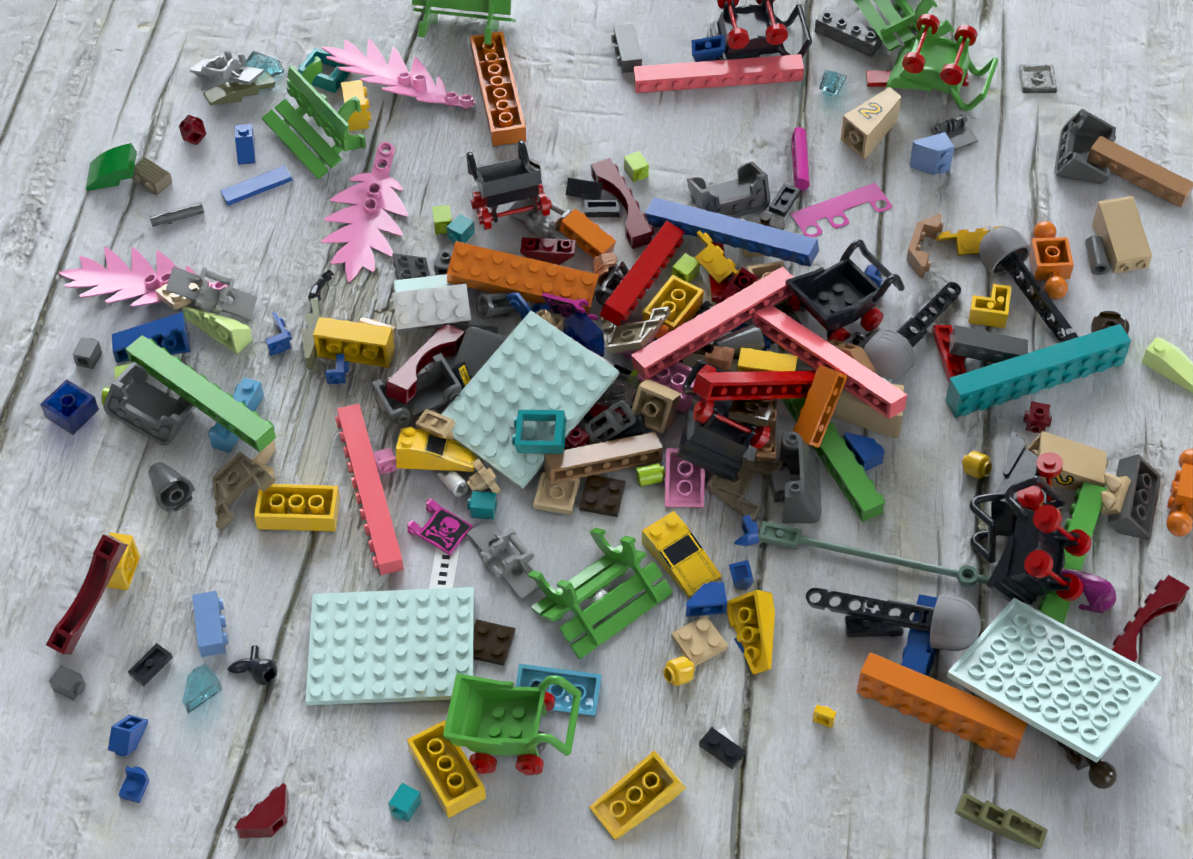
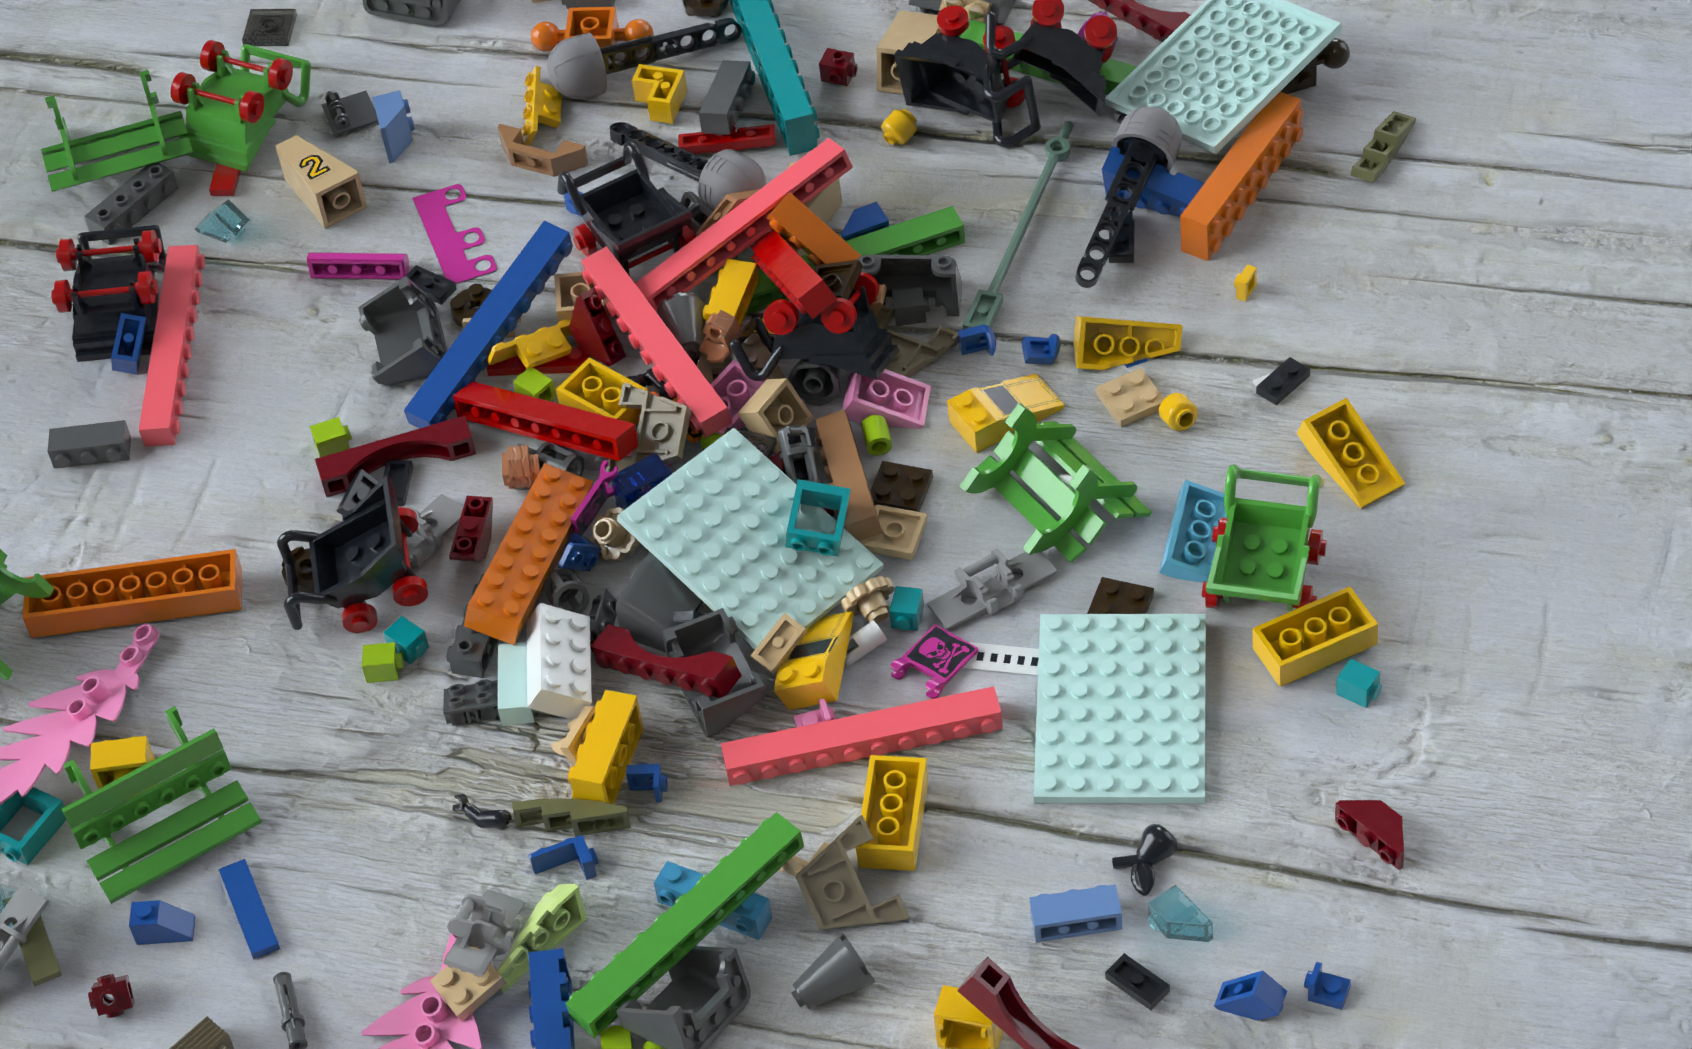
camera: 80 degrees left, 5 degrees down
(367, 215) = (345, 762): bright pink plant -> none
(587, 234) = (449, 489): orange brick -> none
(708, 600) = (1074, 381): blue slope -> none

